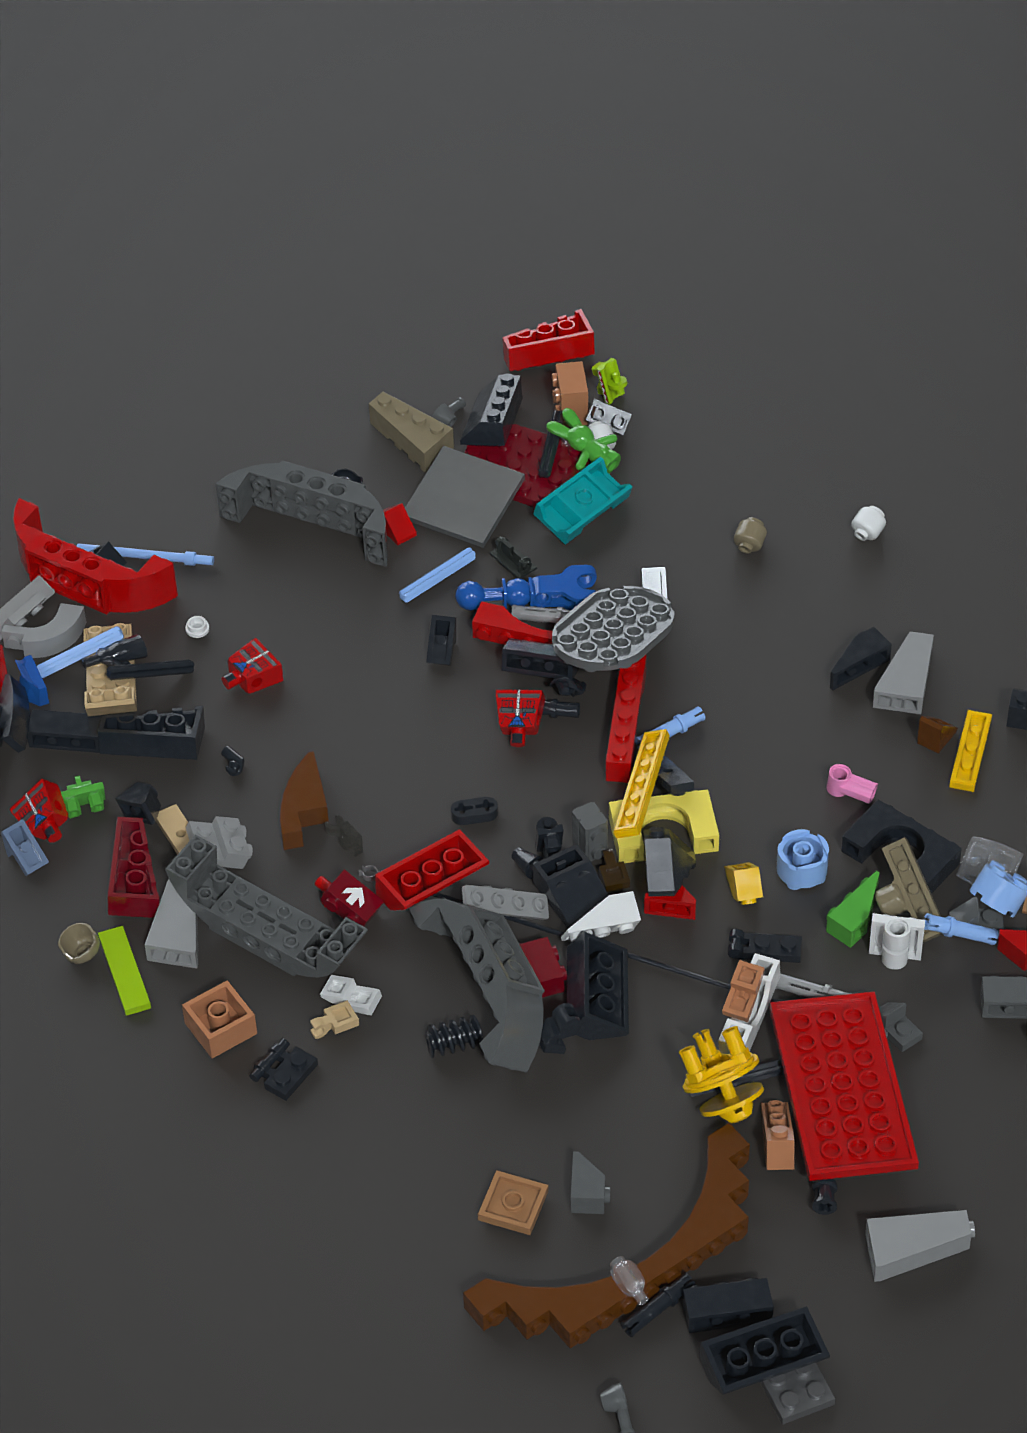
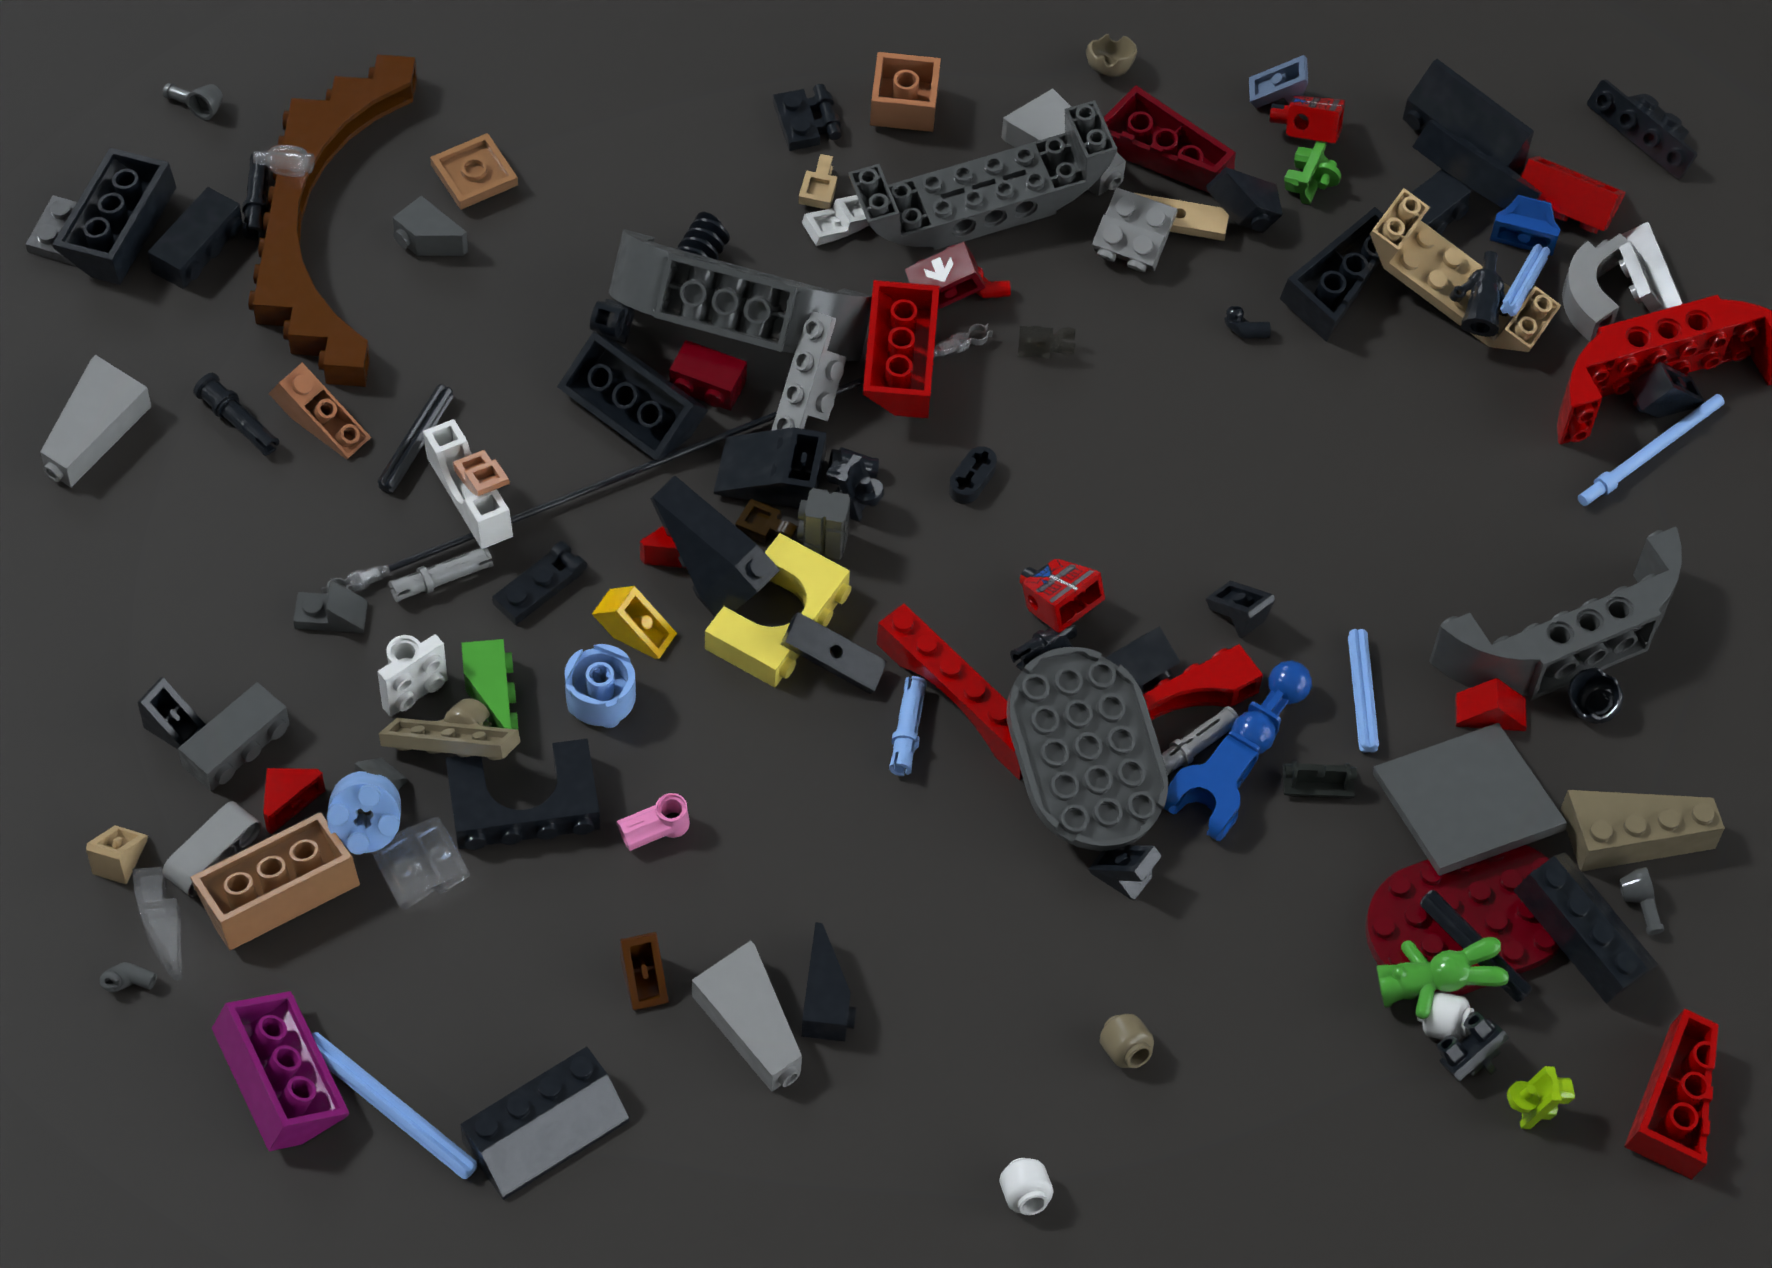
camera: 125 degrees right, 10 degrees up
(124, 970) = (1045, 75): lime tile -> none
(150, 669) = (1438, 318): black axle -> none
(197, 627) = (1483, 412): white plate -> none
(253, 668) = (1368, 421): red torso -> none
(302, 802) = (1127, 337): reddish brown slope -> none
(571, 389) = (1547, 1029): nougat brick -> none
(581, 501) = (1344, 907): teal piece -> none
(613, 914) = (707, 456): white slope -> none
(641, 784) = (839, 609): yellow tile -> none
(719, 1071) = (406, 382): yellow piece -> none
(843, 1086) = (302, 488): red plate -> none
(951, 927) = (386, 706): light blue pin -> none
(970, 751) = (588, 992): yellow tile -> none

